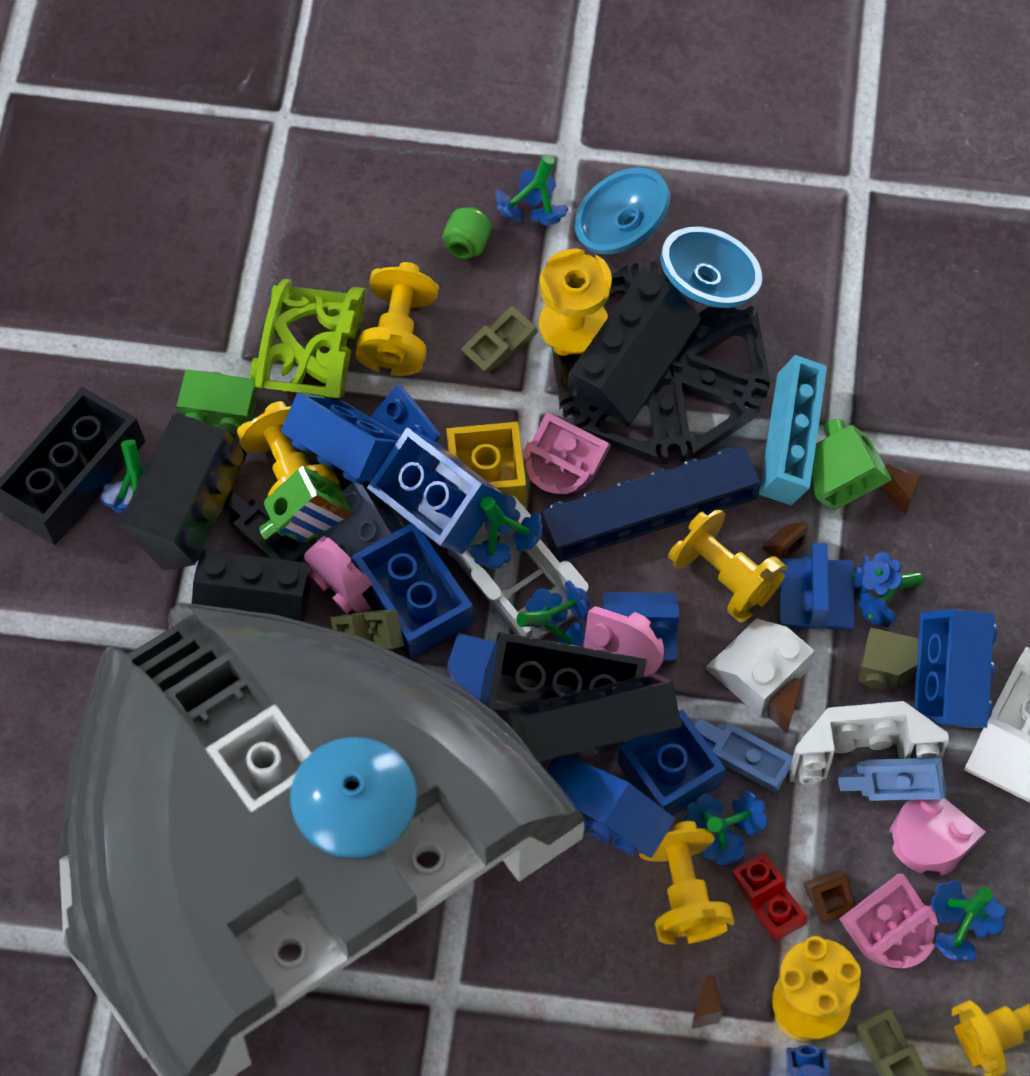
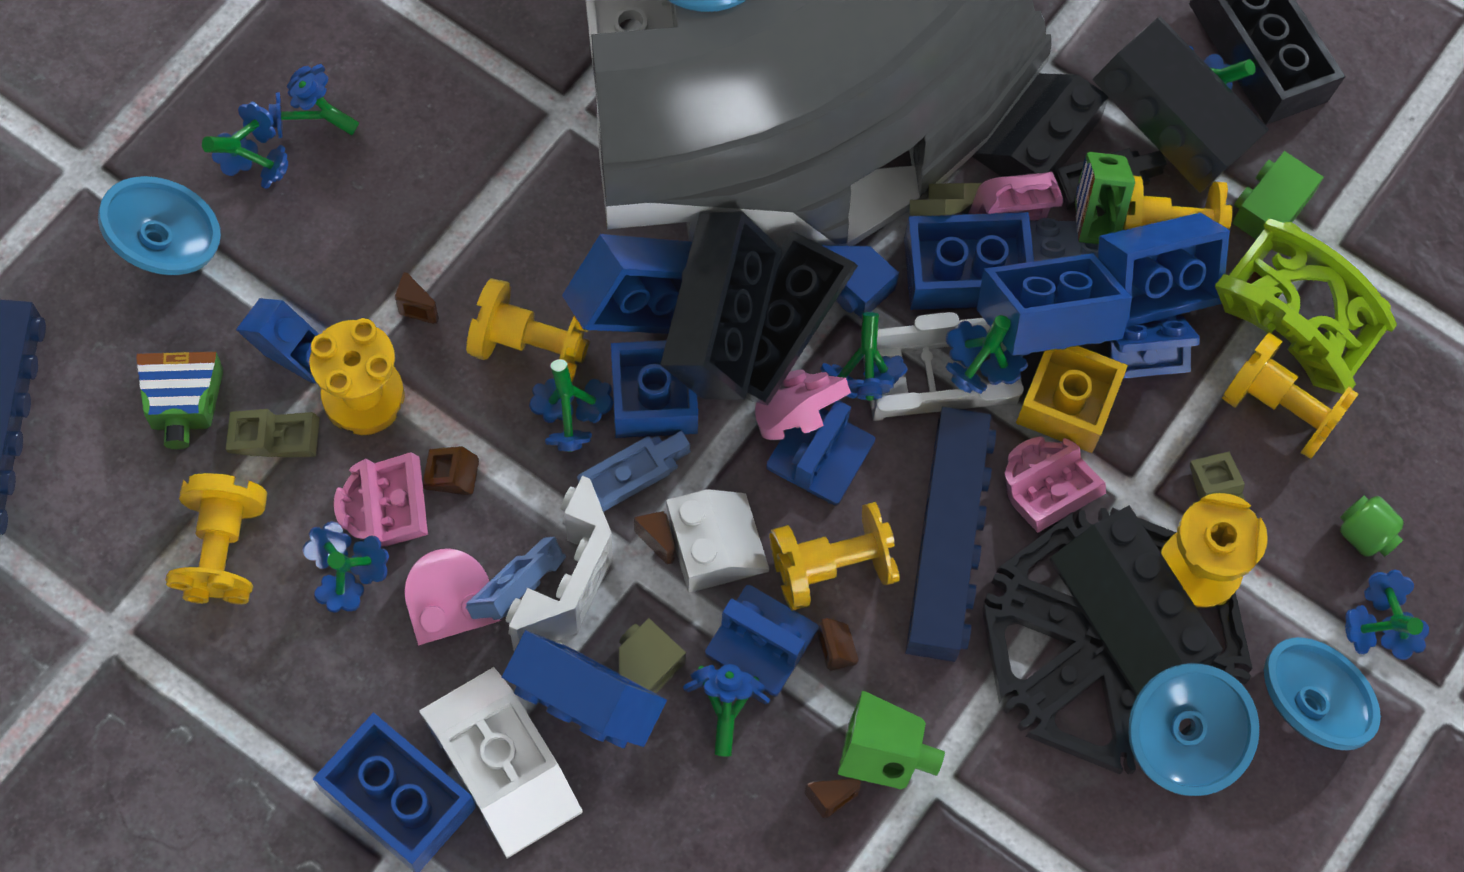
camera: 115 degrees right, 5 degrees up
(768, 897) = (484, 416): red slope -> none
(793, 430) = (955, 716): medium azure brick -> none

